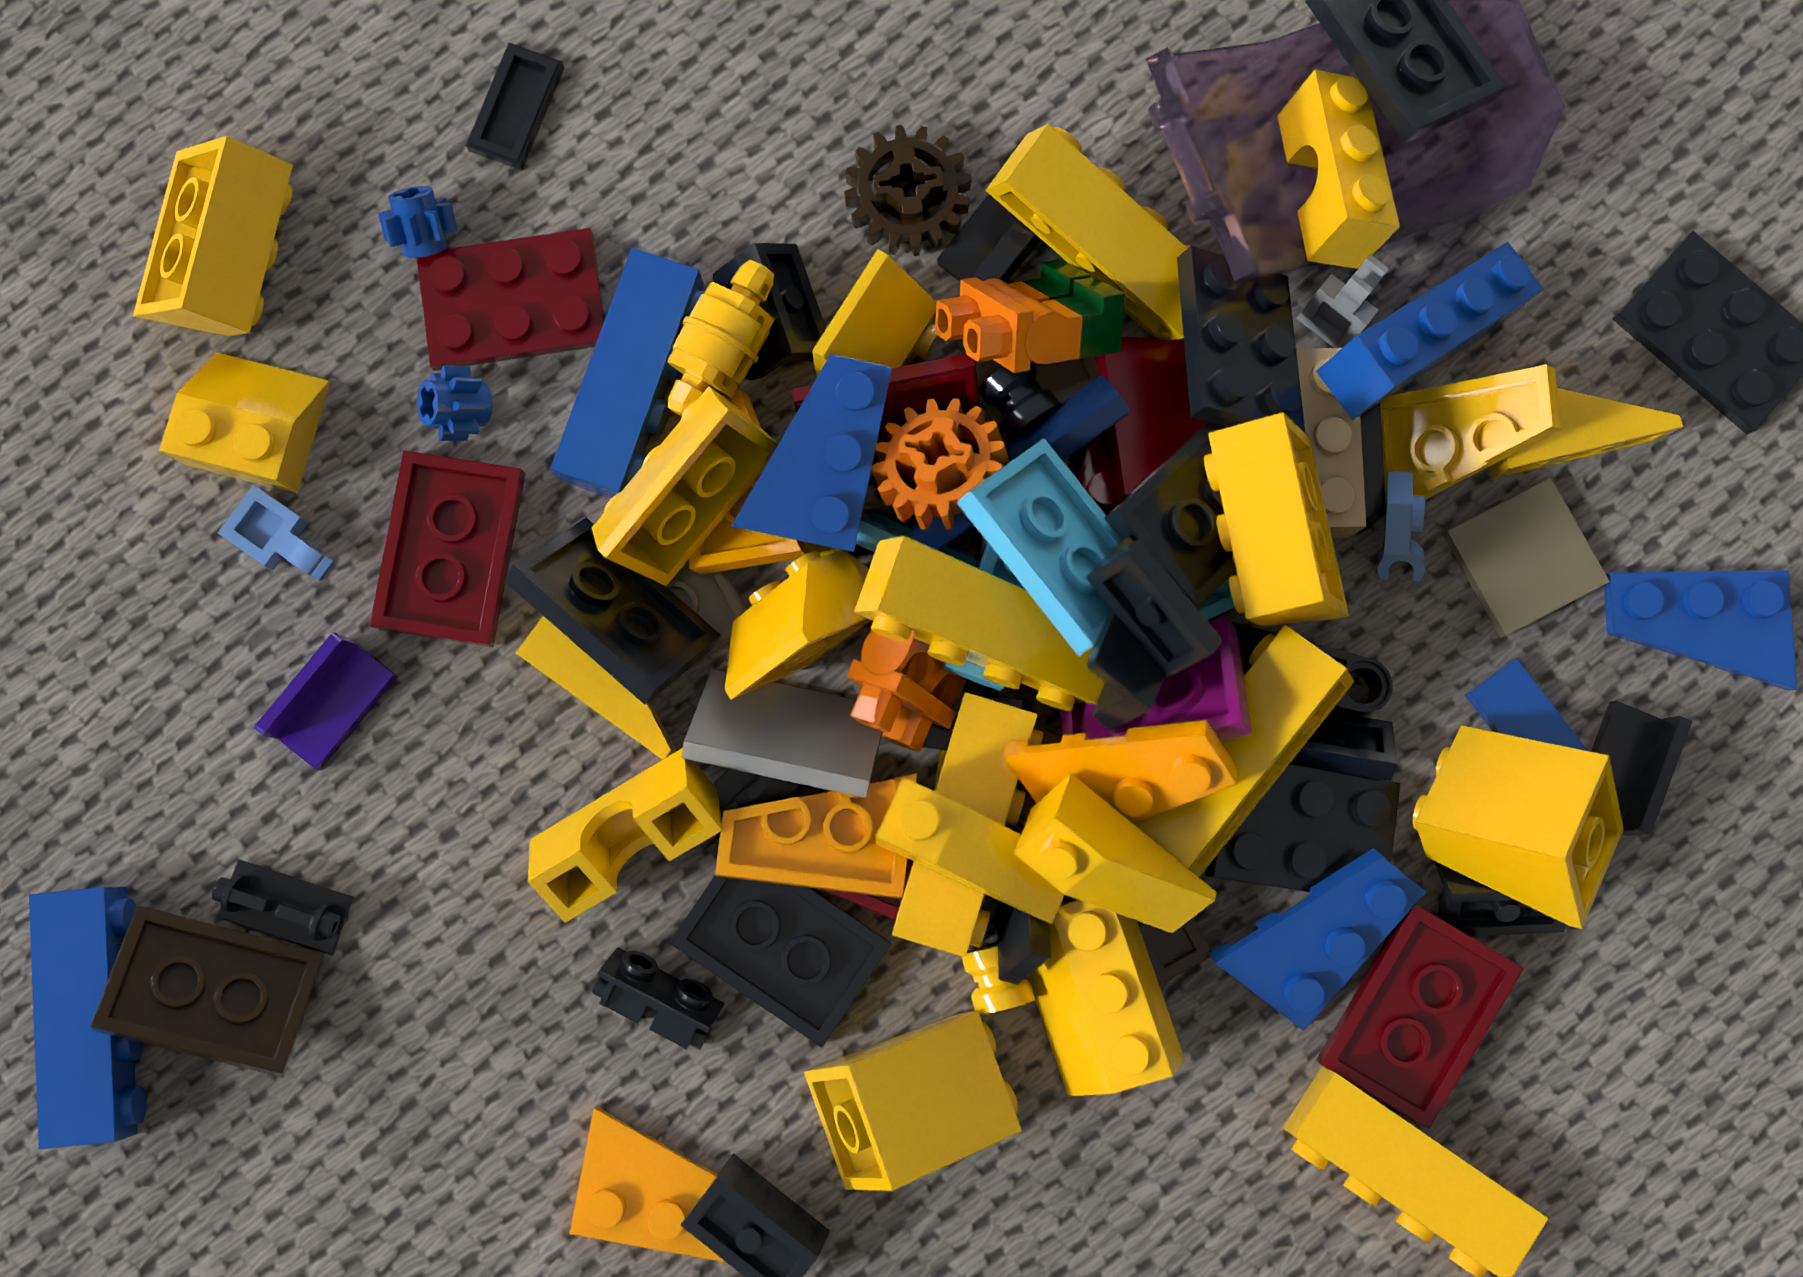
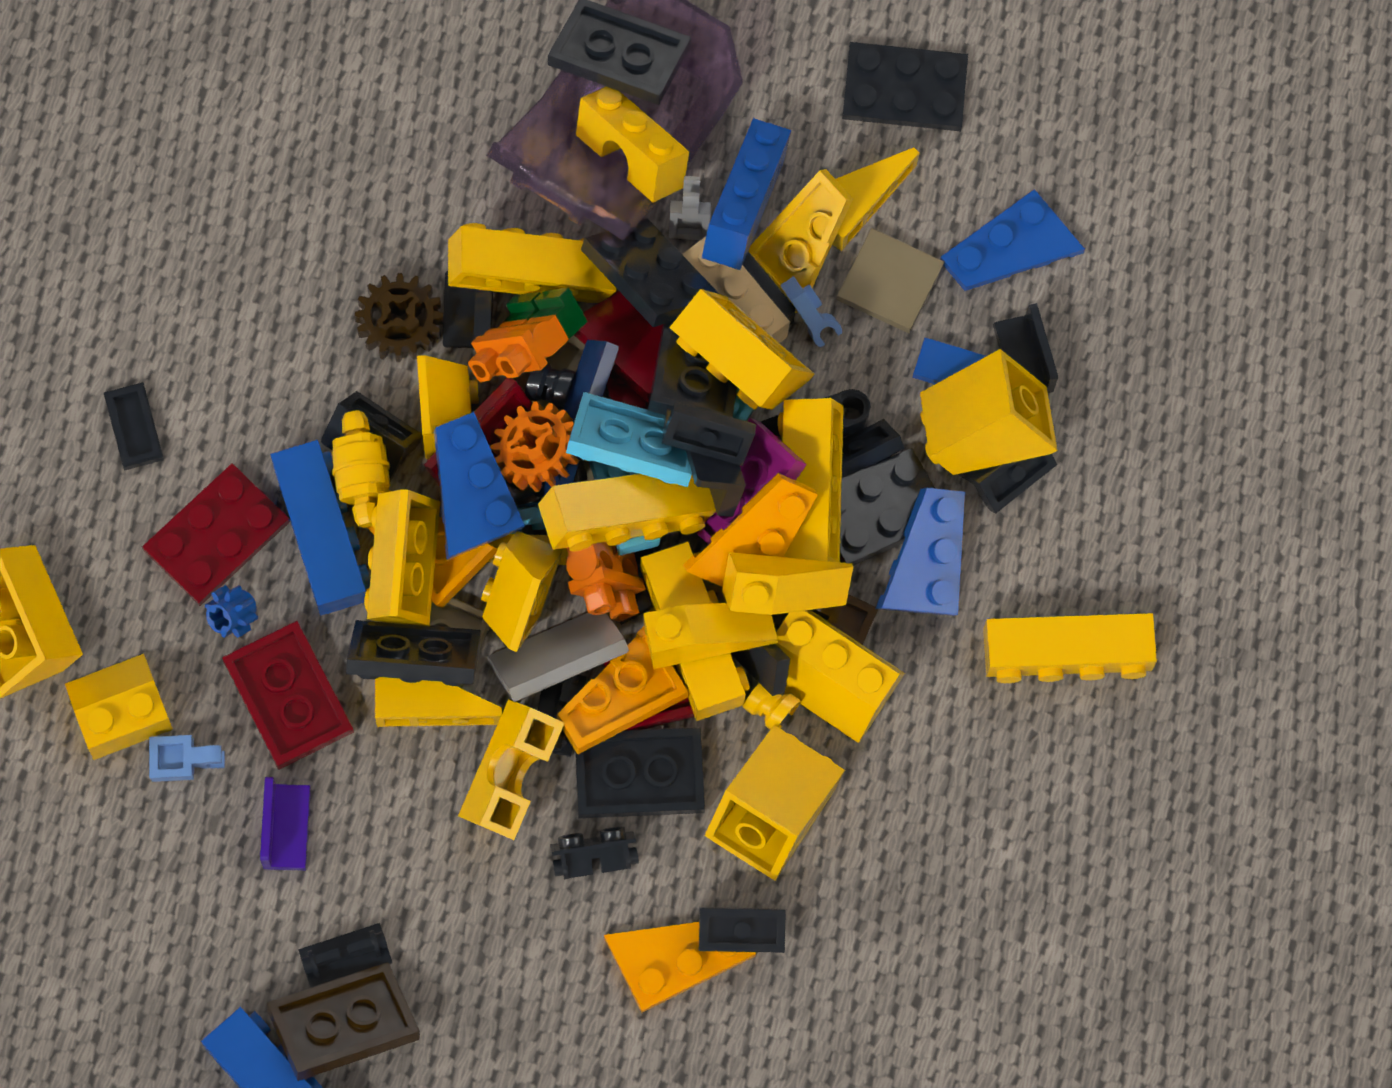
camera: 40 degrees left, 10 degrees down
(417, 221) = (132, 526): blue gear -> none
(1419, 1015) = (1011, 558): dark red plate -> none

